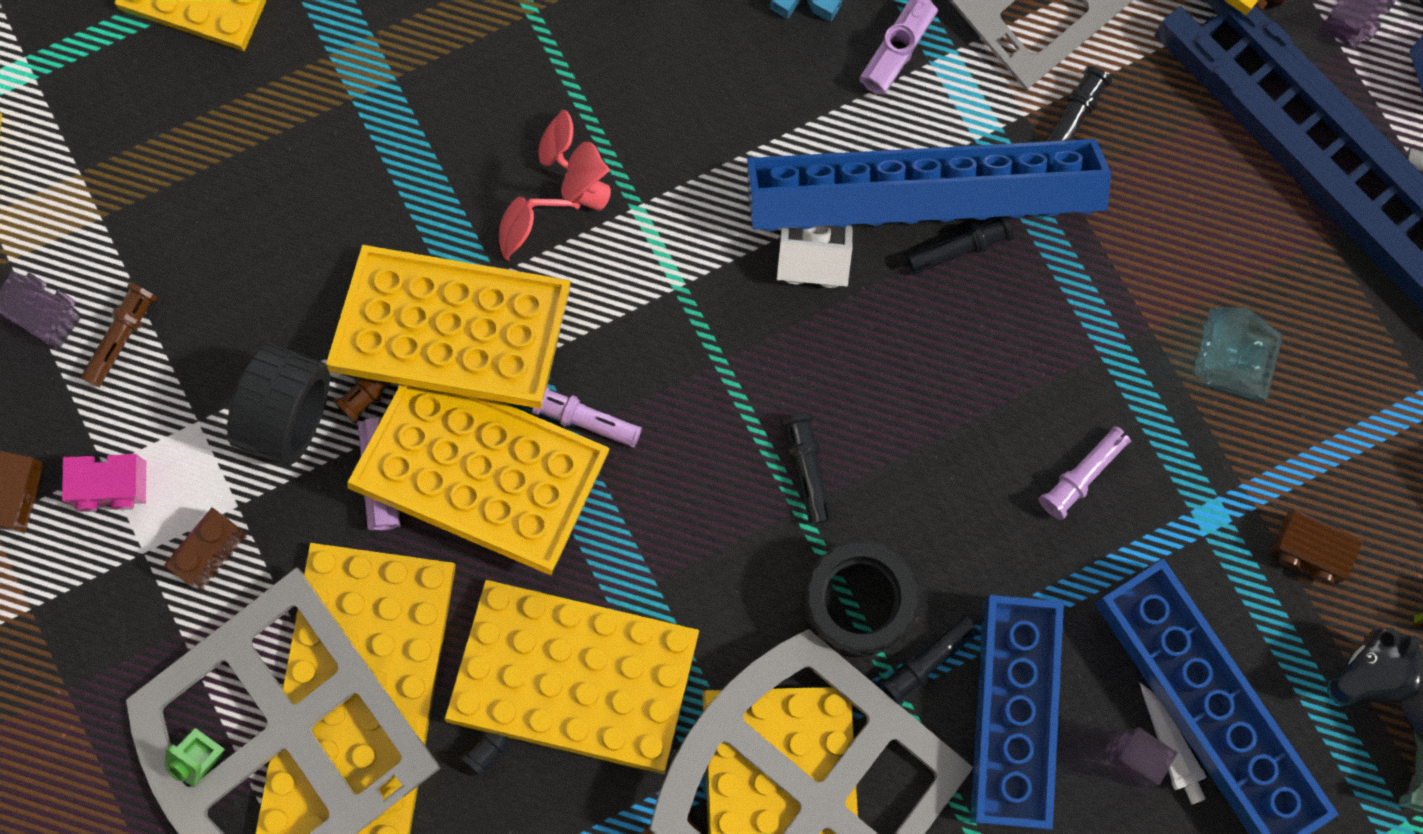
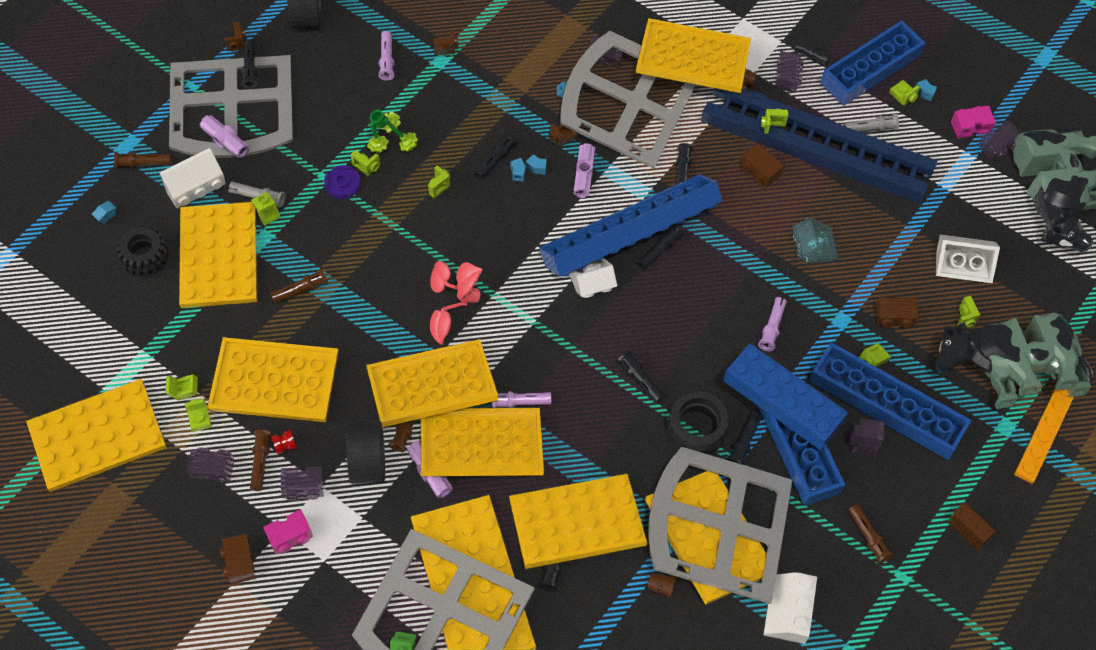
camera: 25 degrees left, 15 degrees down
(50, 152) = (181, 387): none -> lime bracket
(58, 213) = (198, 415): none -> lime bracket
(155, 404) = (302, 484): none -> clear purple brick
(168, 321) = (283, 442): none -> red wheel
(204, 204) = (273, 379): none -> yellow plate
(205, 549) = (358, 541): reddish brown brick -> none
(337, 55) = (307, 283): none -> reddish brown pin
(1027, 628) = (785, 396): none -> blue brick
(1184, 769) = (890, 437): white bar -> none
(1217, 167) = (761, 165): none -> reddish brown brick
(1231, 611) = (875, 355): none -> lime bracket
(1282, 90) = (774, 117): none -> lime bracket

